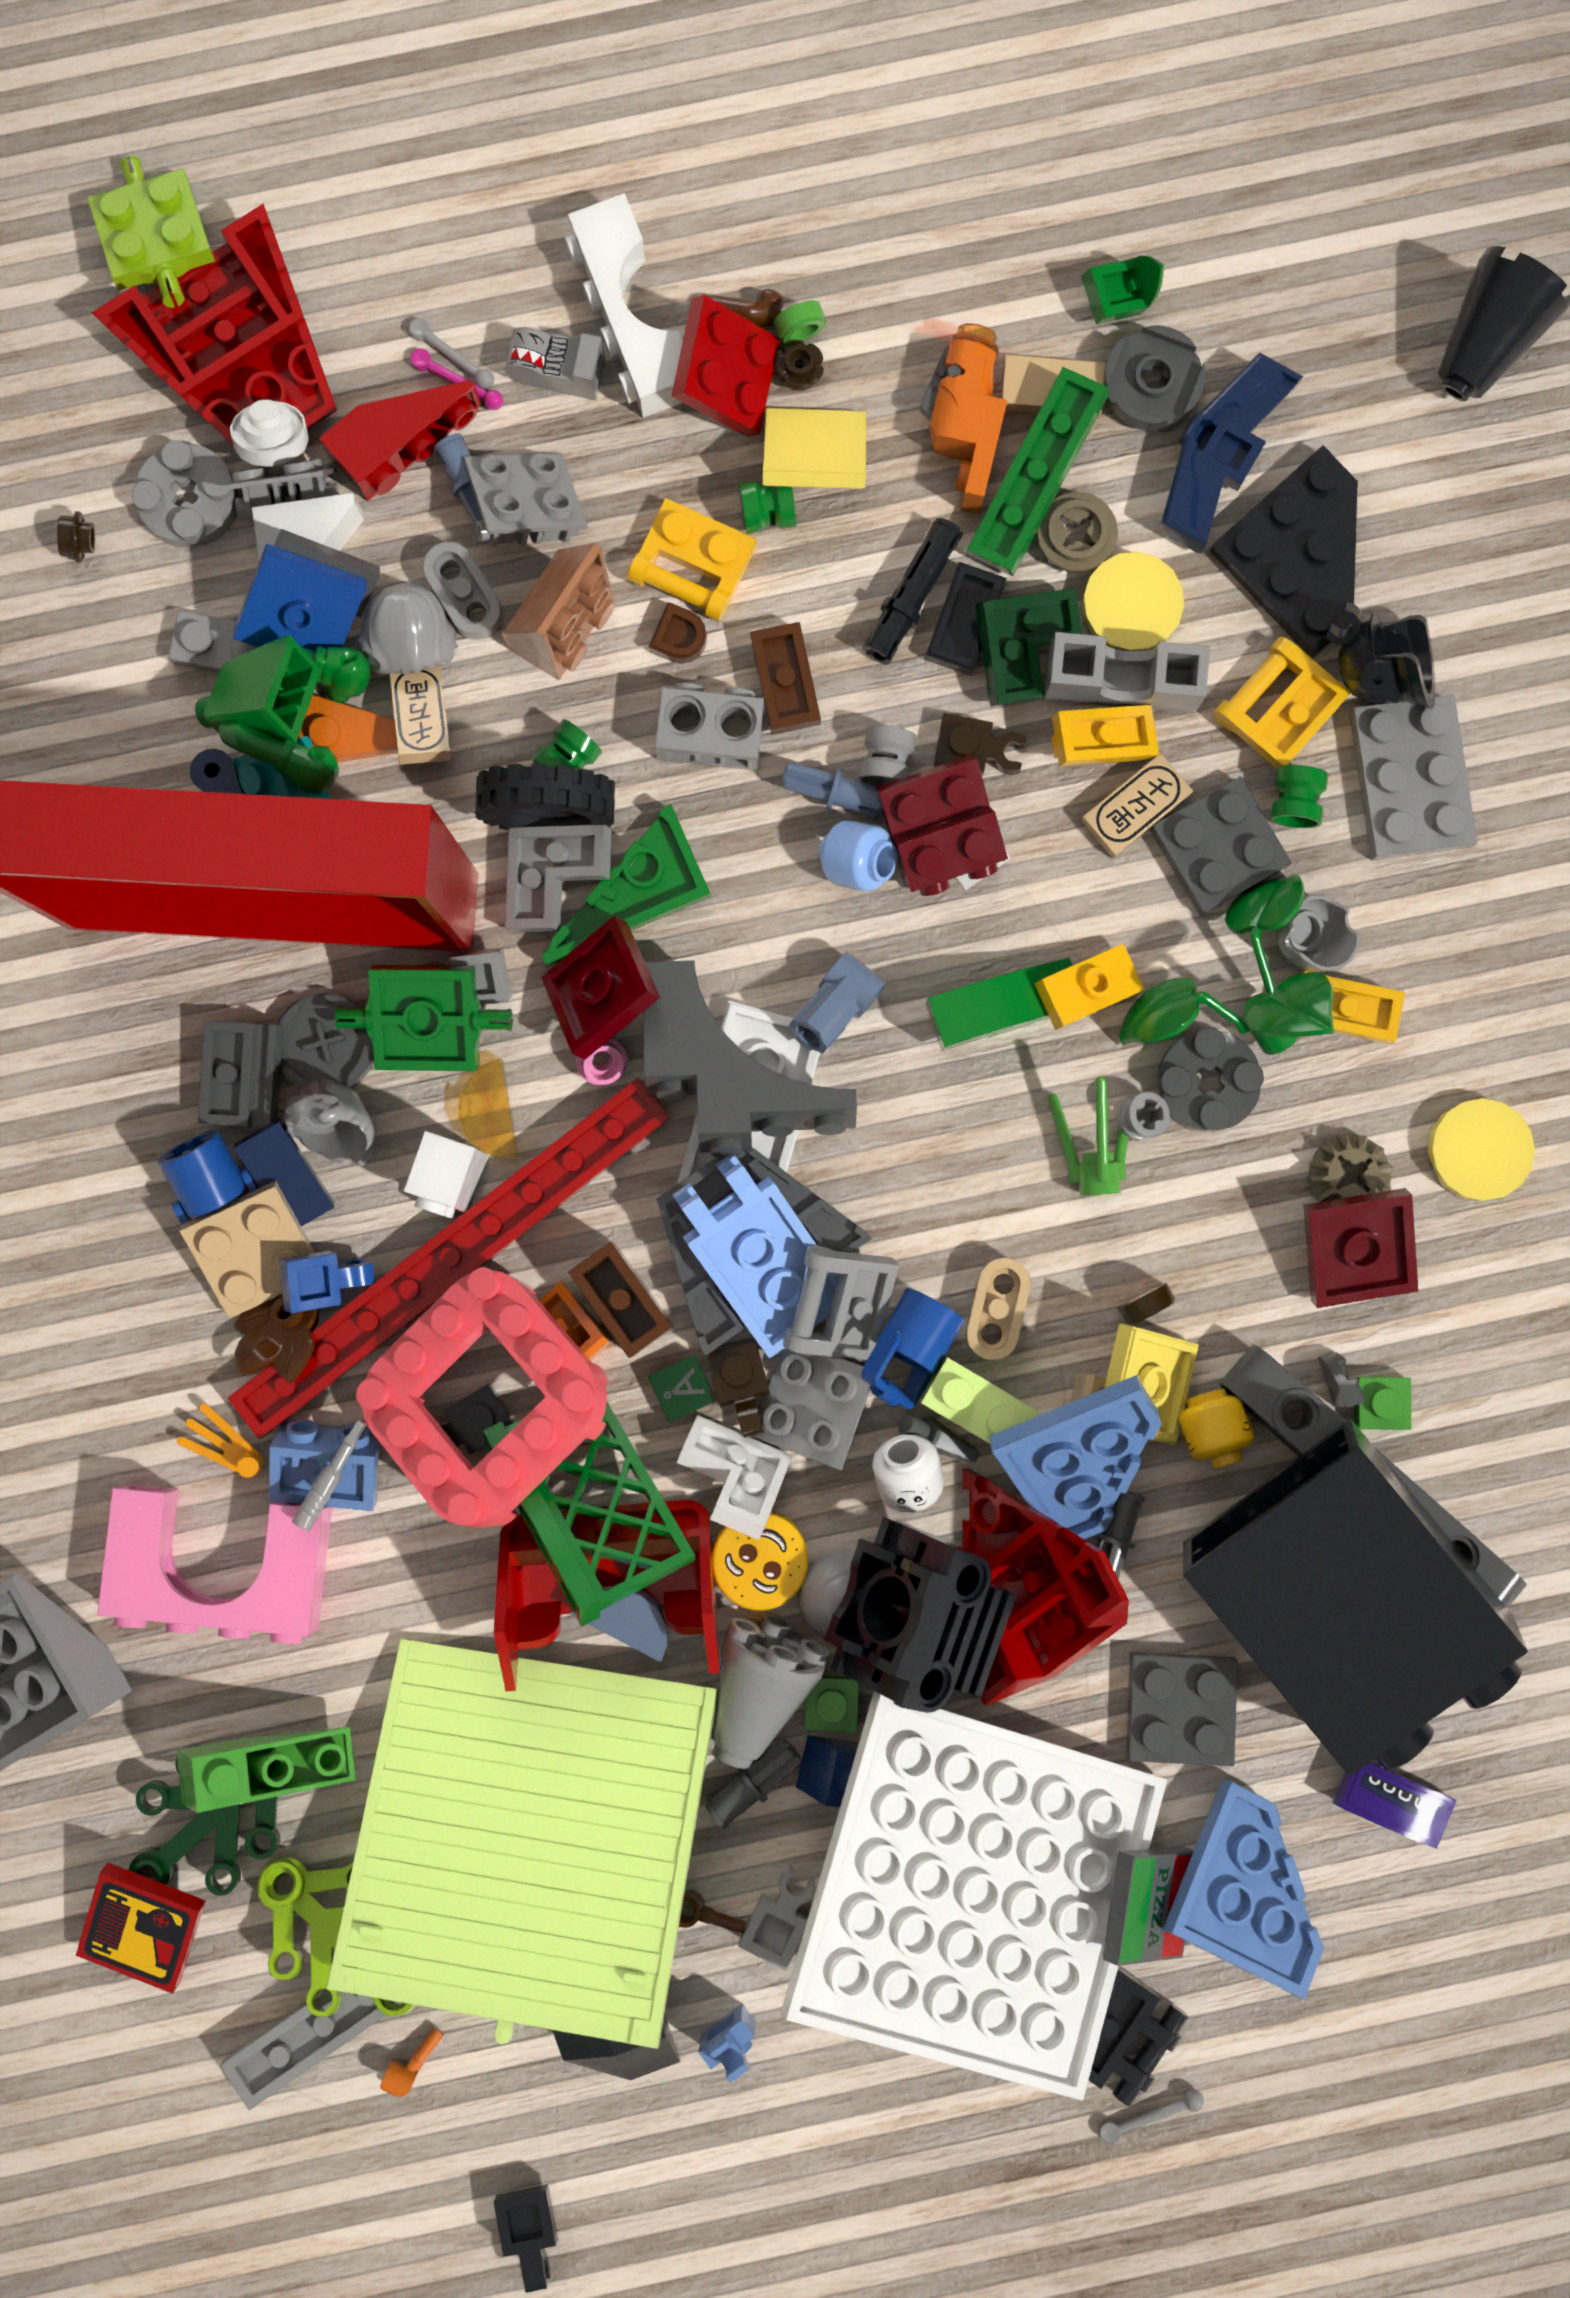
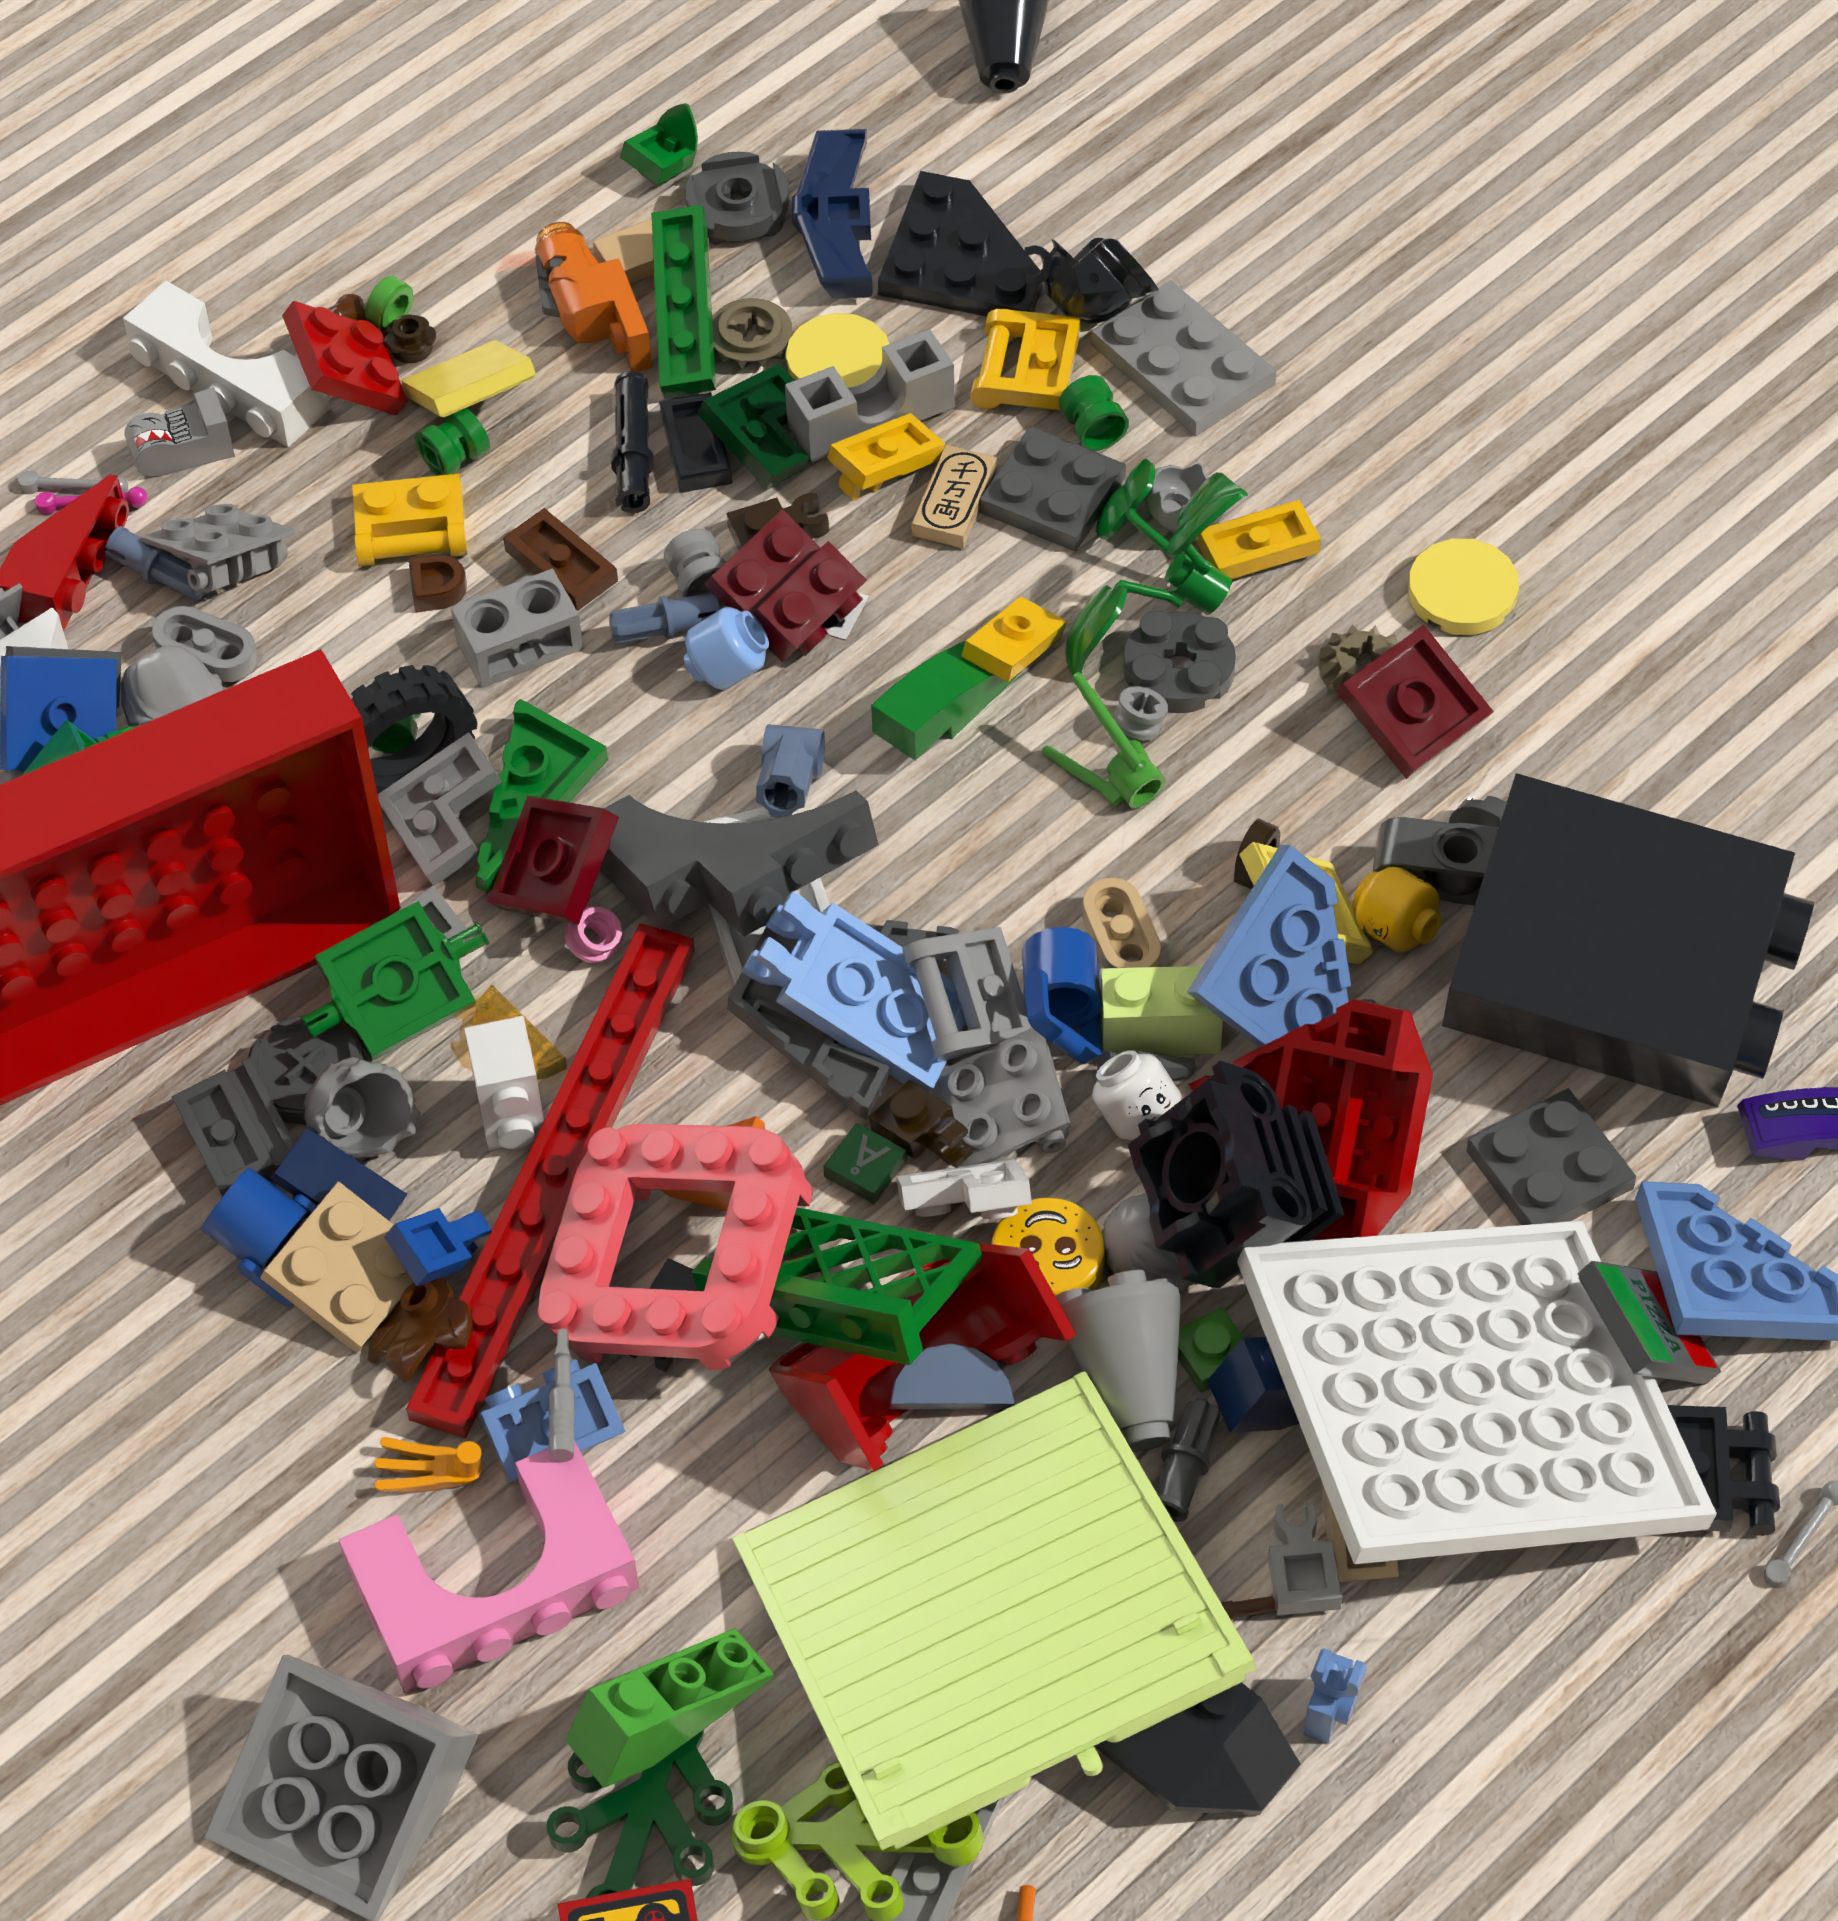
camera: 30 degrees left, 30 degrees down
(562, 610) = (316, 587): nougat slope -> none
(621, 1299) = (738, 1086): reddish brown brick -> none

